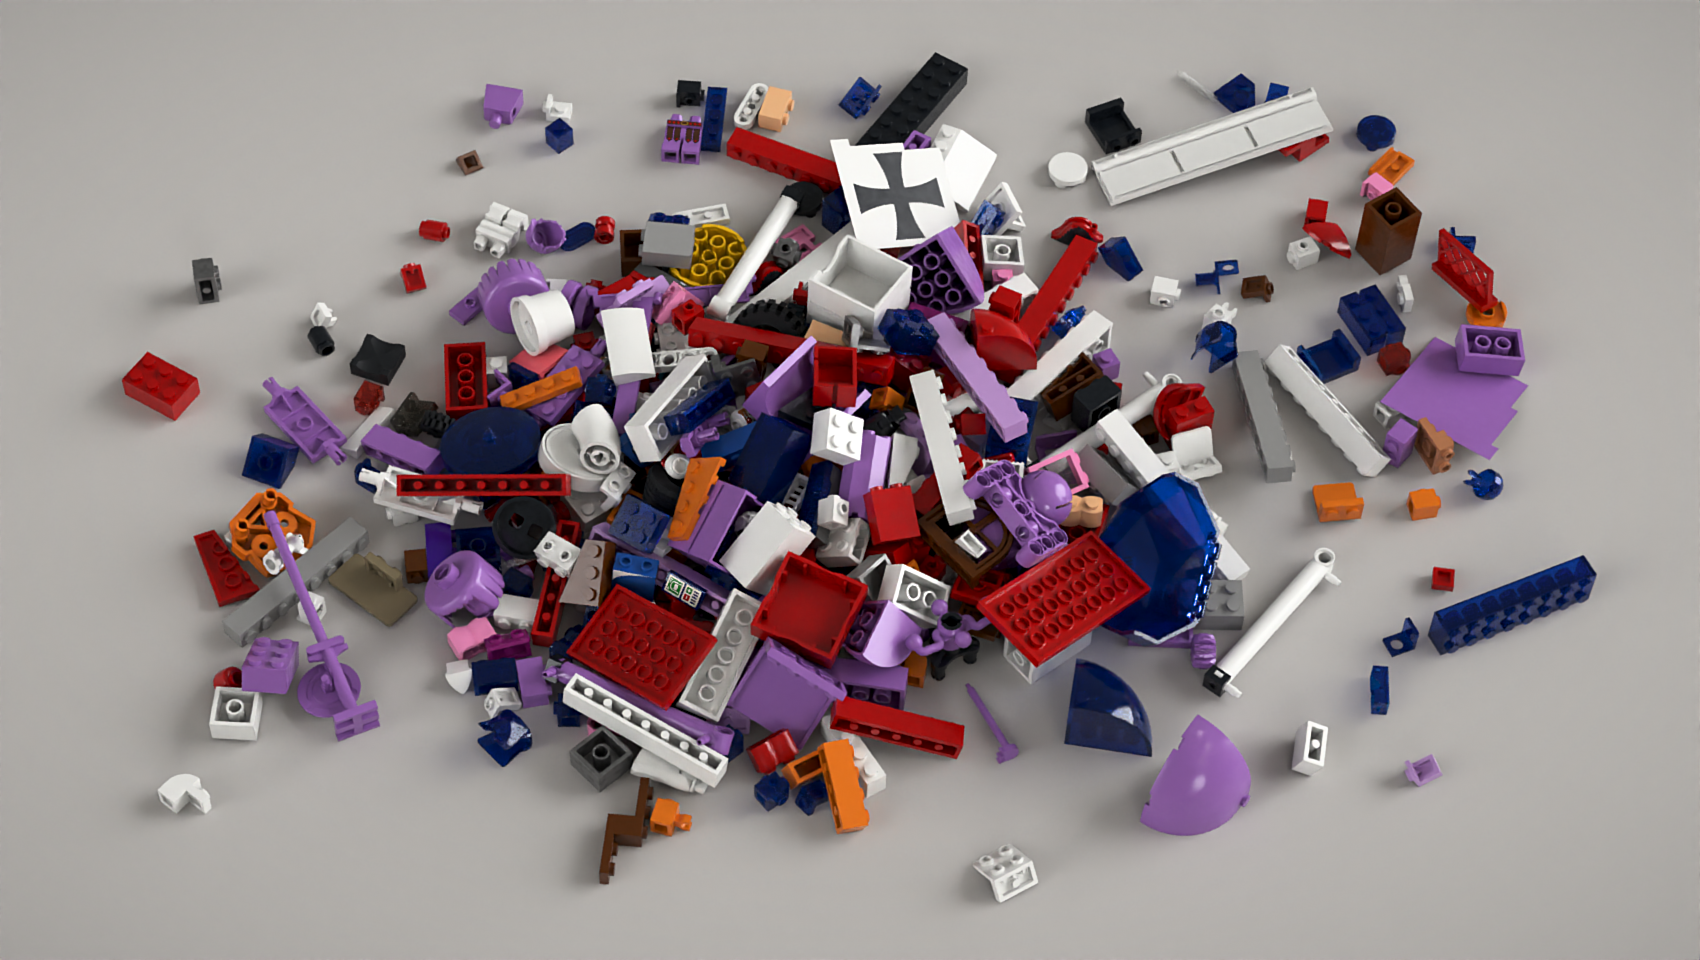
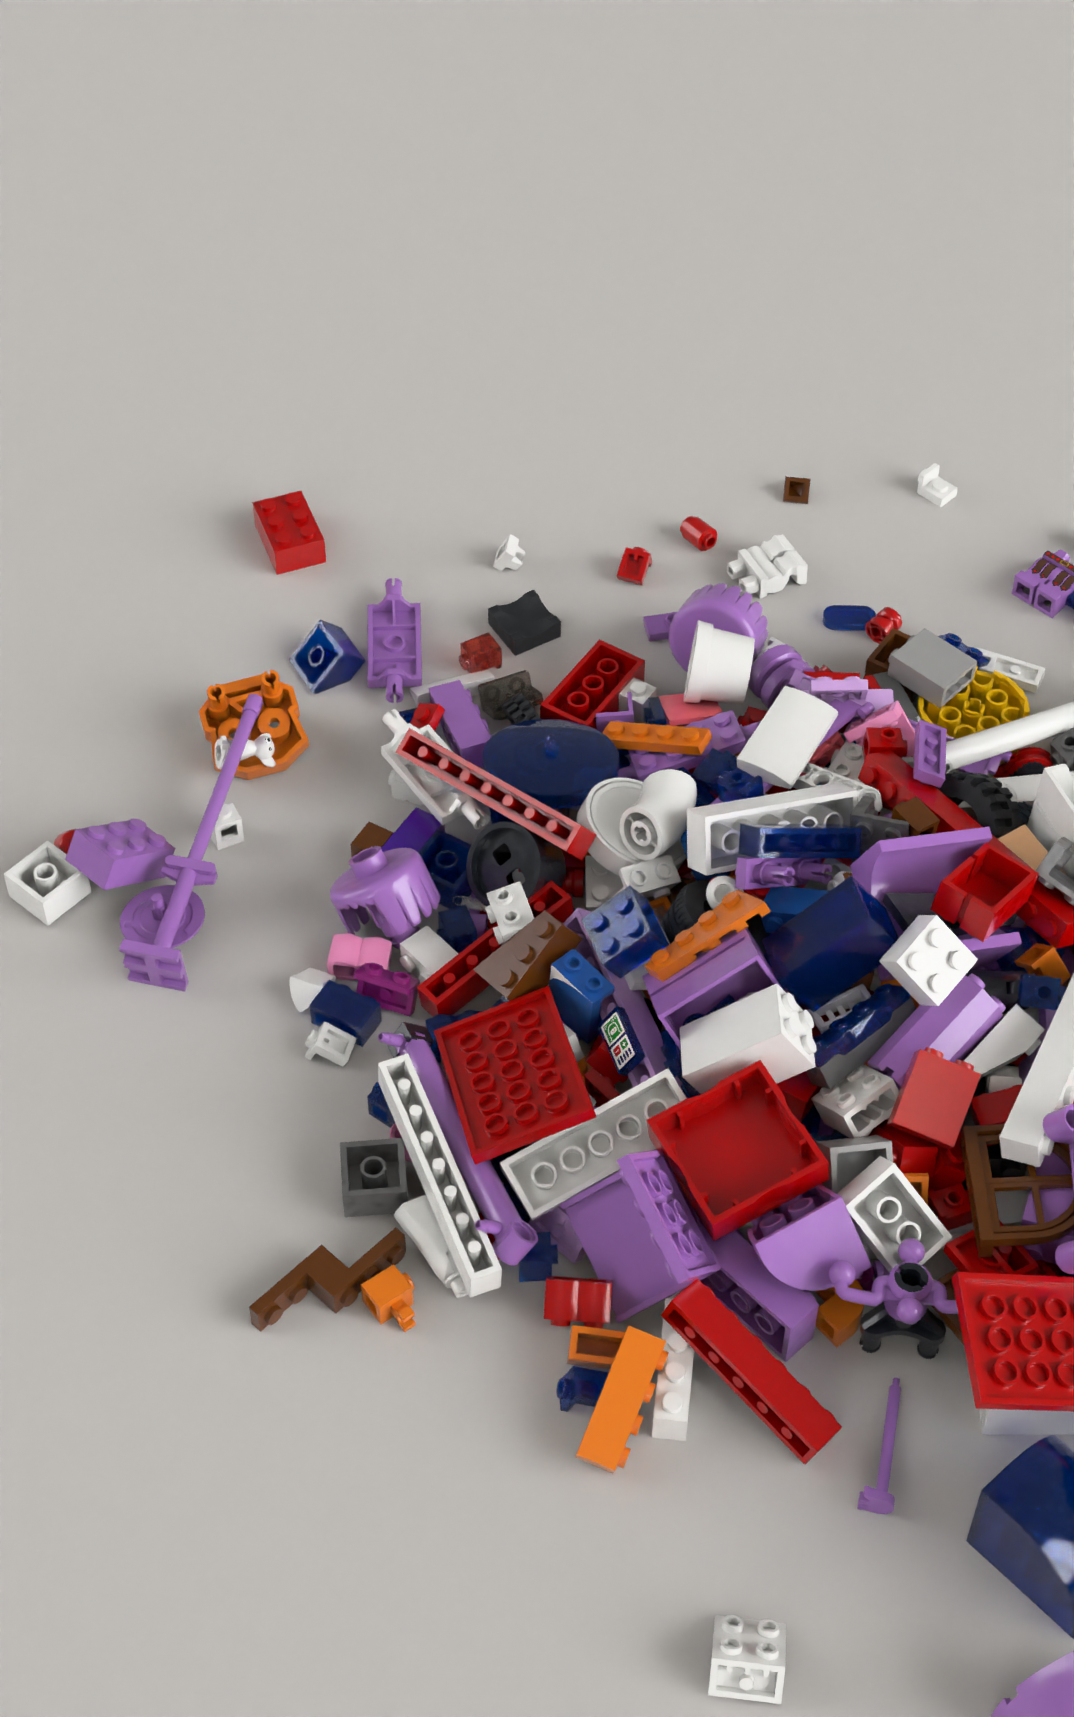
camera: 40 degrees right, 5 degrees down
(206, 280) = (421, 458): flat silver brick -> none
(224, 572) = (179, 740): red wing -> none
(280, 595) = (250, 789): light grey brick -> none
(321, 340) = (485, 575): black brick -> none
(374, 587) = (309, 844): dark tan bracket -> none
(379, 460) = (427, 714): none -> red plate
(501, 104) = (878, 452): medium lavender torso -> none
(507, 737) = (293, 1084): clear blue piece -> none
(532, 686) = (367, 1049): medium lavender brick -> none
(545, 236) = (808, 594): medium lavender hair -> none
(559, 135) = (914, 510): clear blue brick -> none
(628, 394) = (737, 784): none -> clear blue brick
(724, 305) = (930, 754): none -> medium lavender plate
(772, 791) = (537, 1348): clear blue brick -> none
(833, 512) = (862, 1052): white brick -> none
(895, 418) = (1029, 988): none -> clear blue brick
(971, 544) = (1010, 1196): white piece -> none

